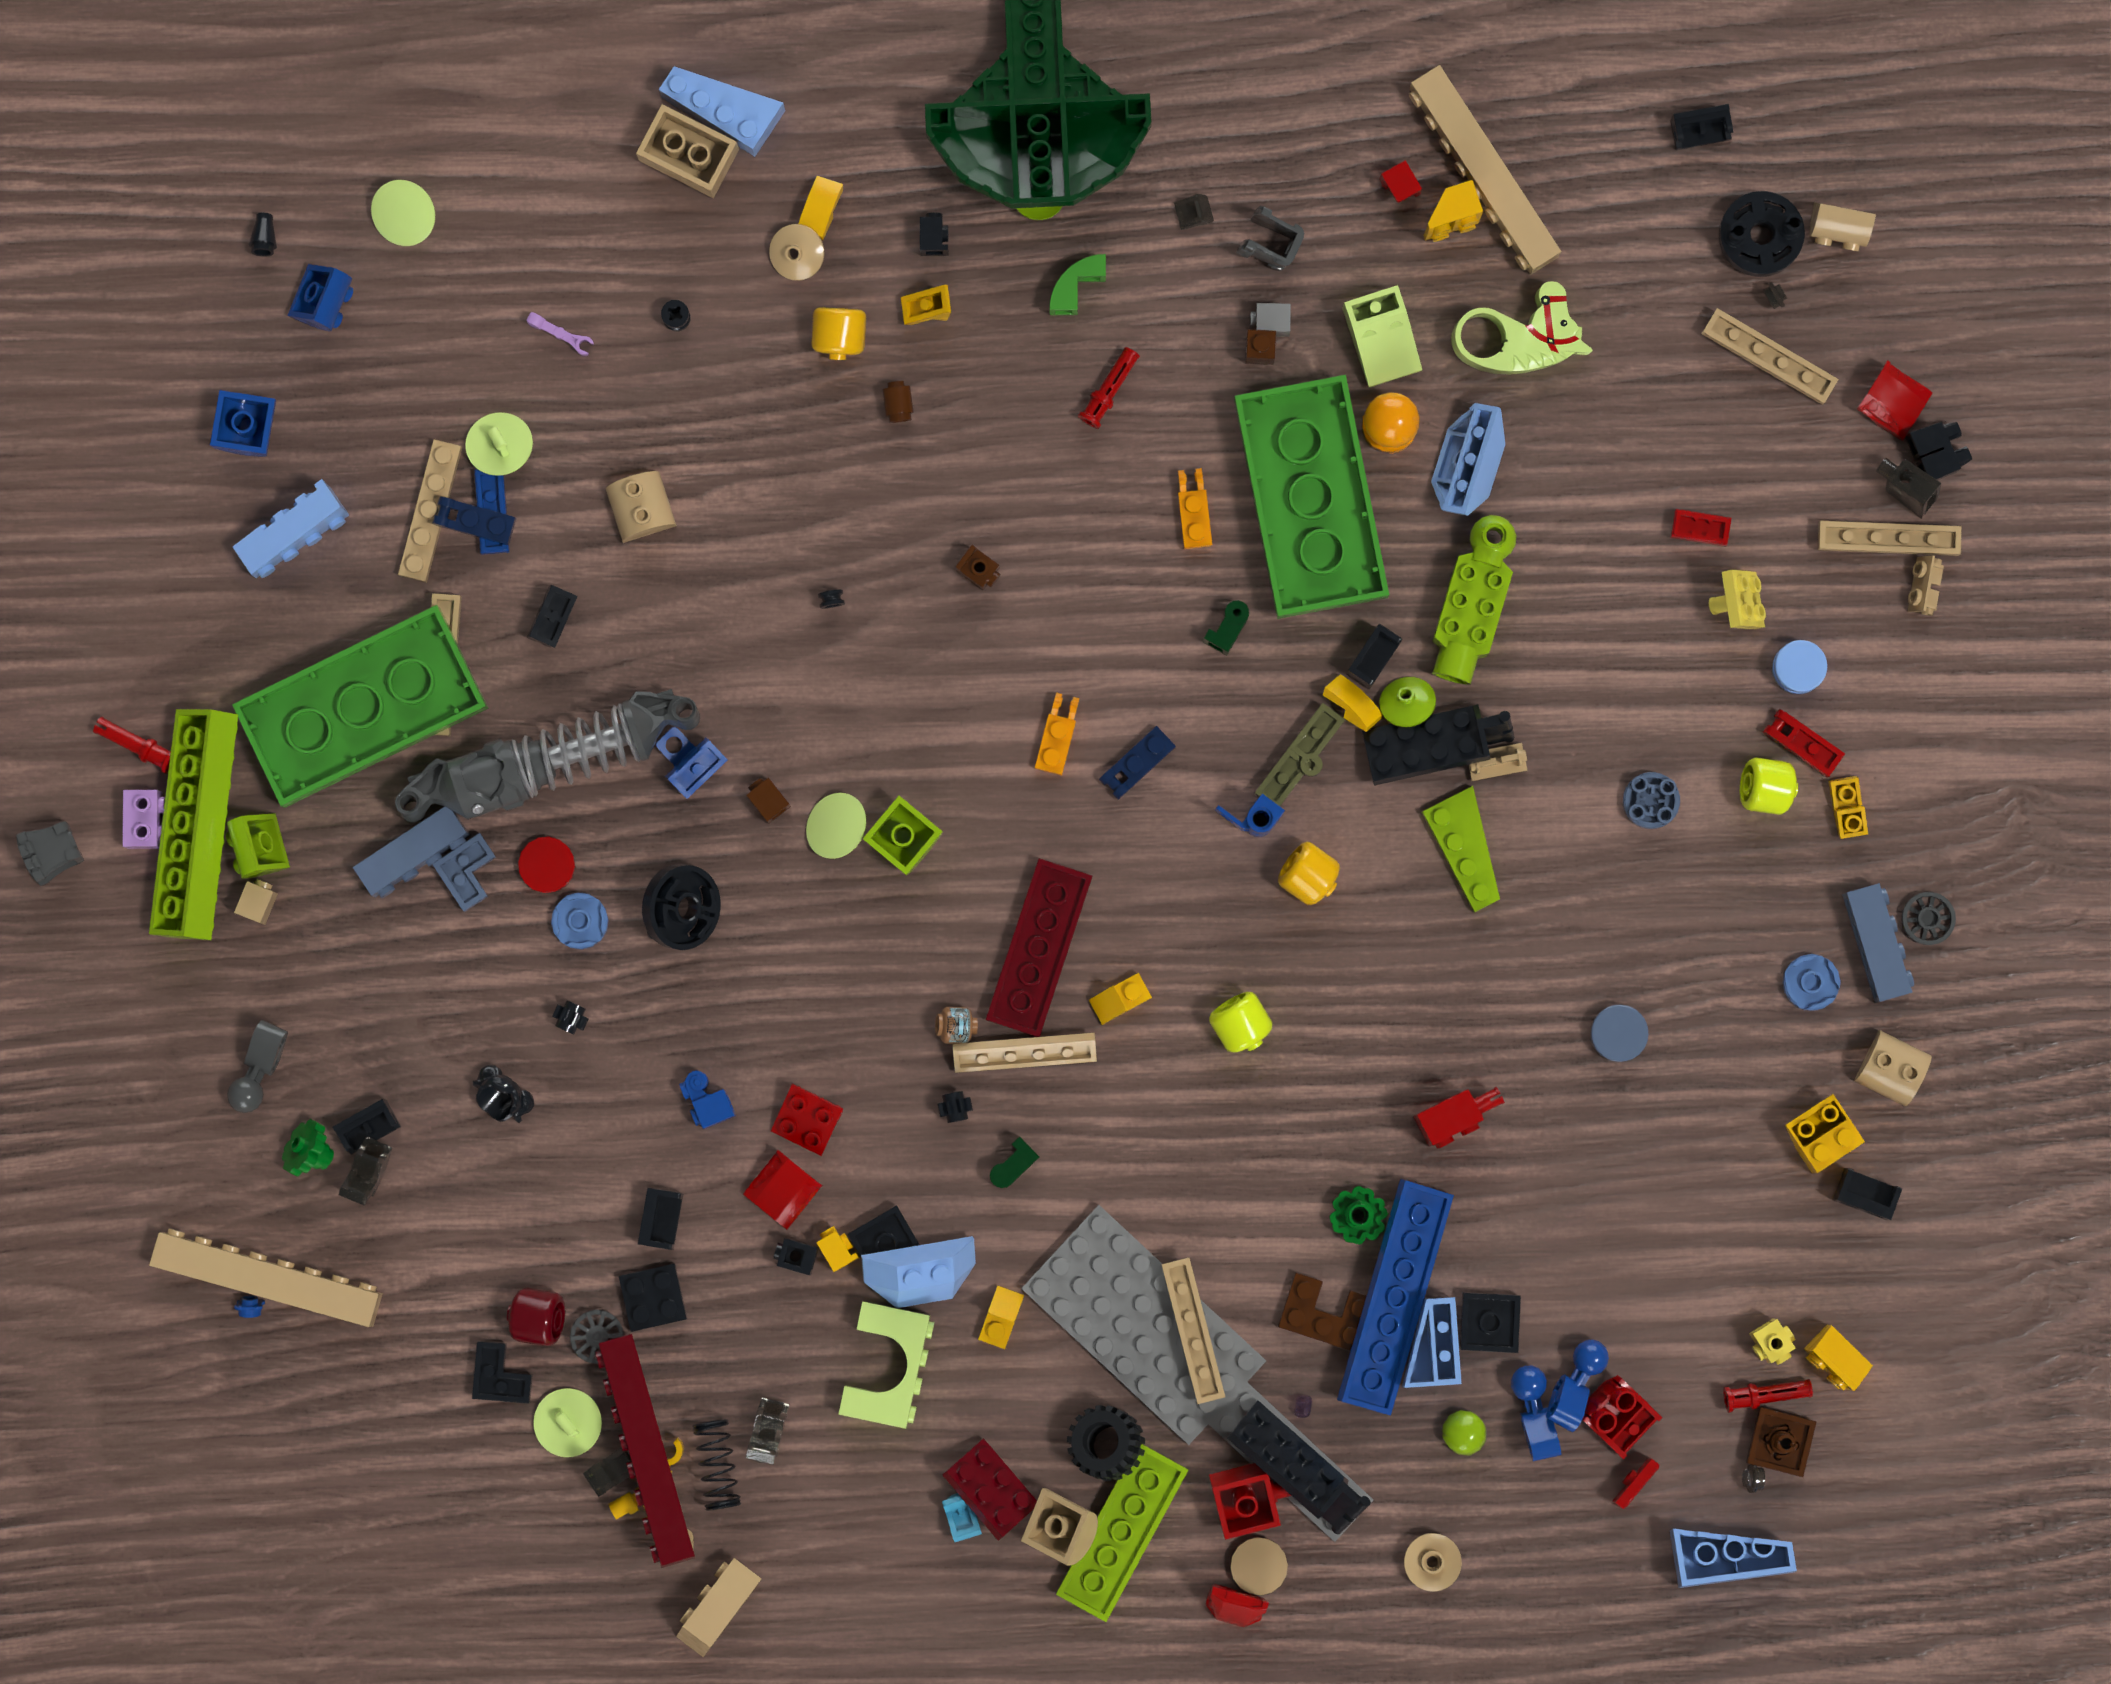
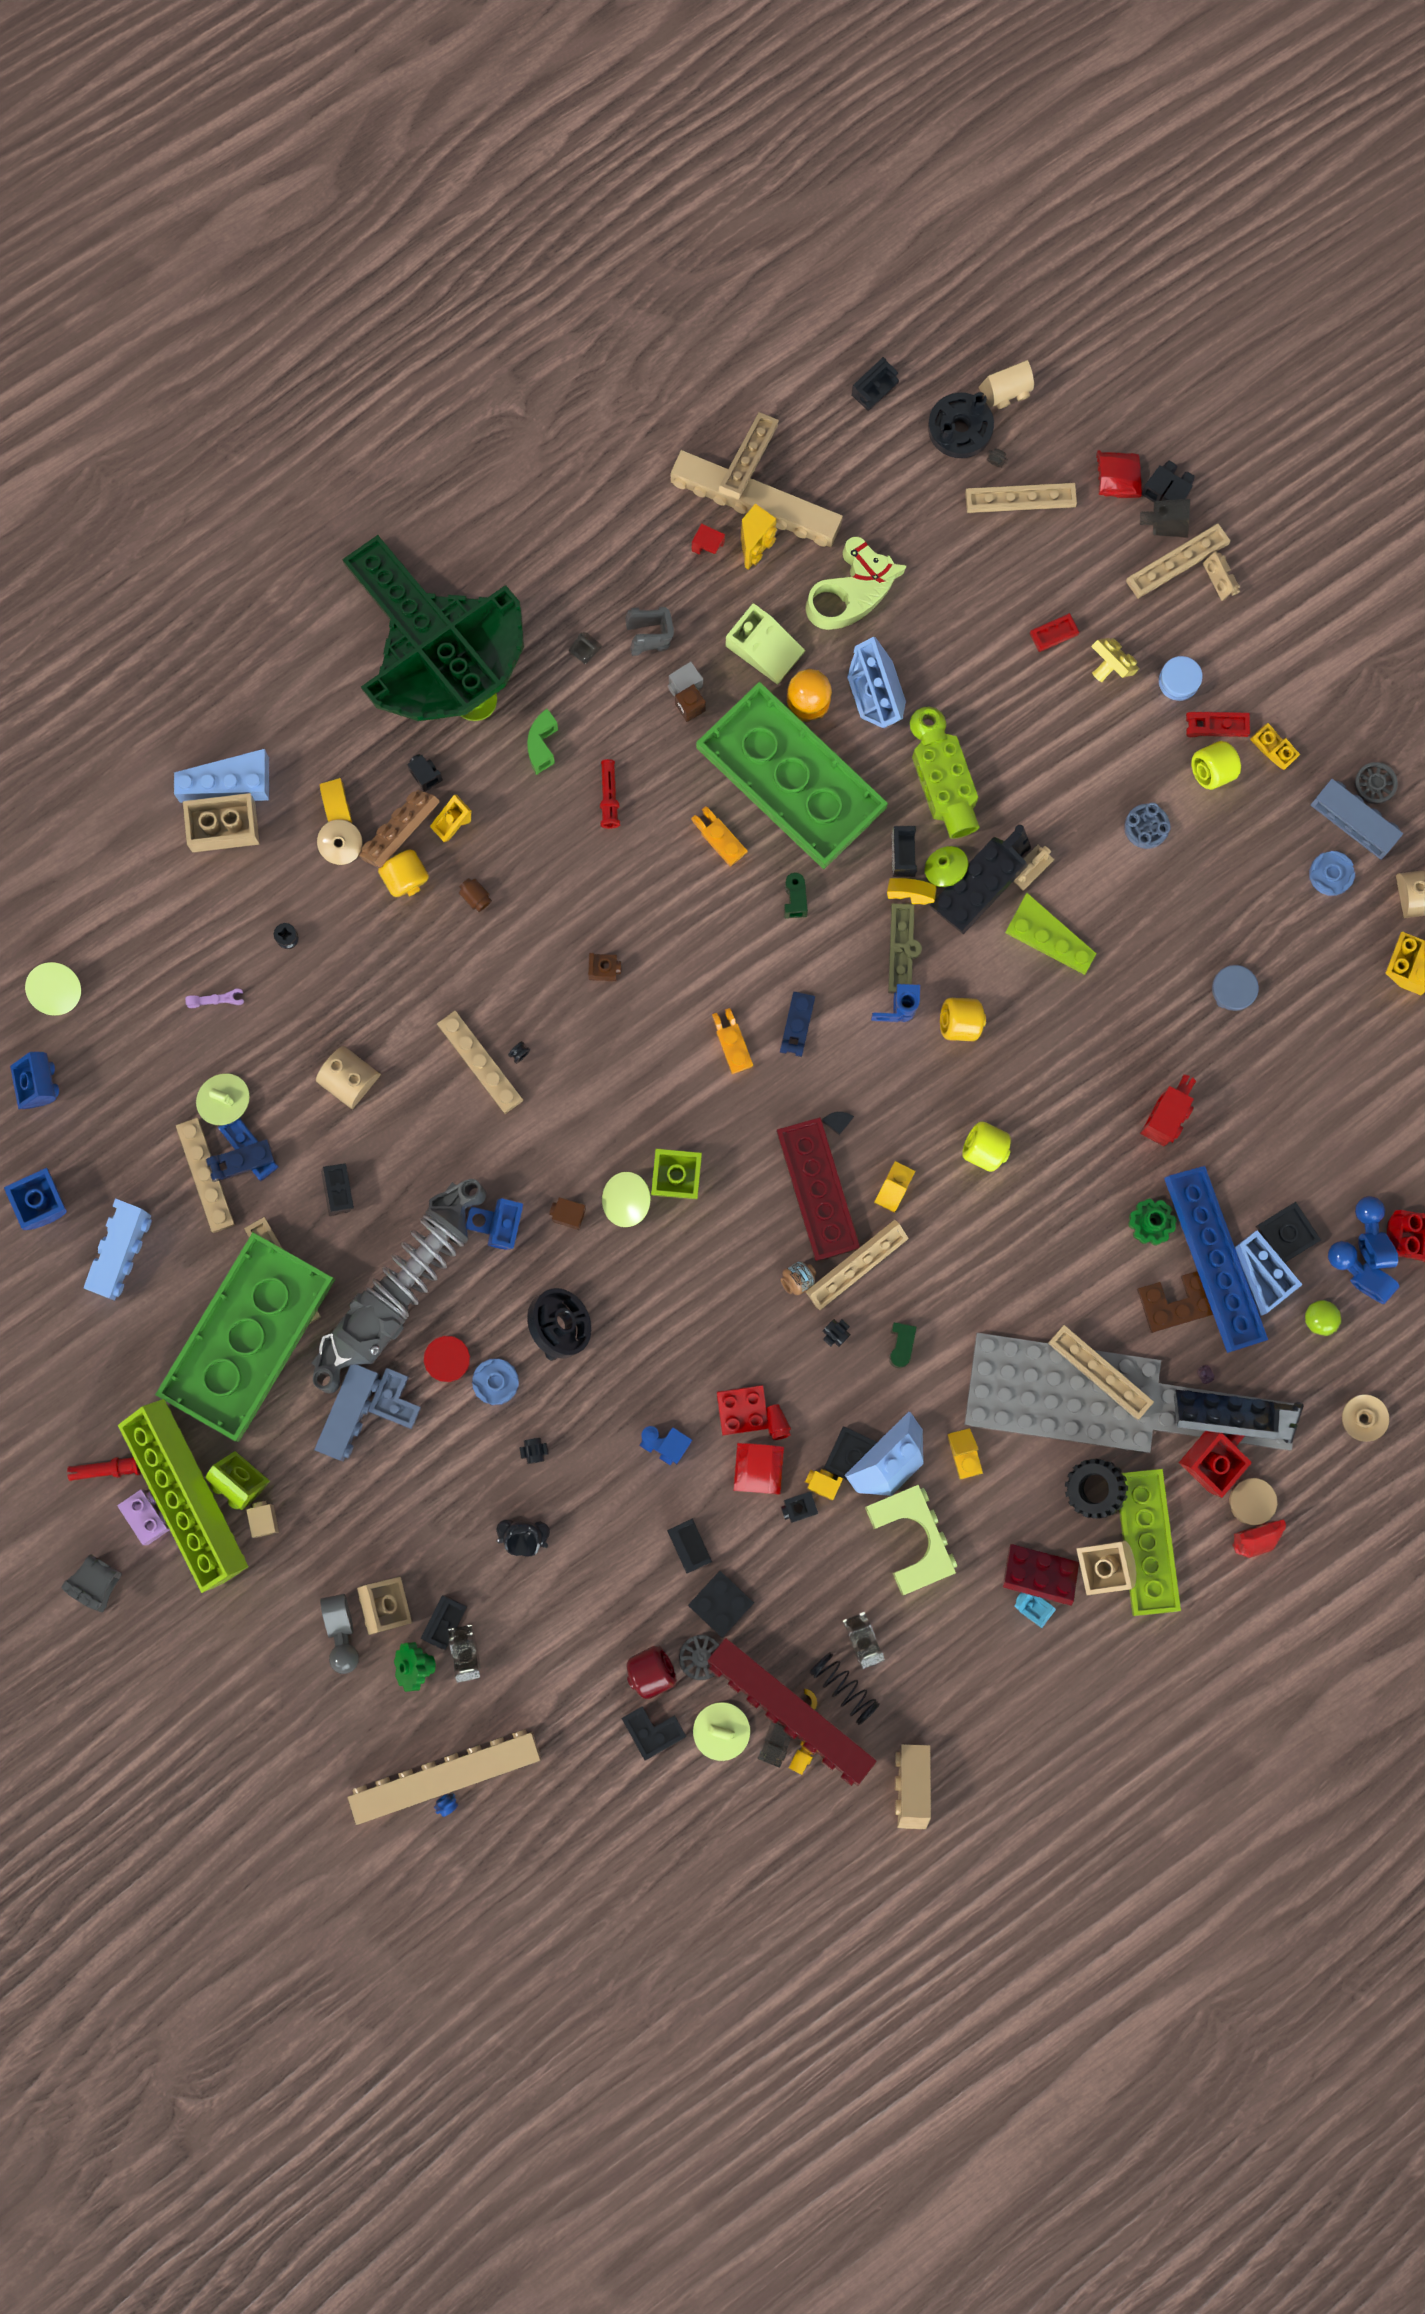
camera: 40 degrees left, 5 degrees down
(319, 1070) = (384, 1605): none -> tan brick
(785, 581) = (480, 1062): none -> tan plate
(833, 1157) = (777, 1423): none -> red cone
(865, 279) = (399, 828): none -> medium nougat plate
(1109, 891) = (838, 1121): none -> black tile
(1506, 119) = (748, 456): none -> tan plate

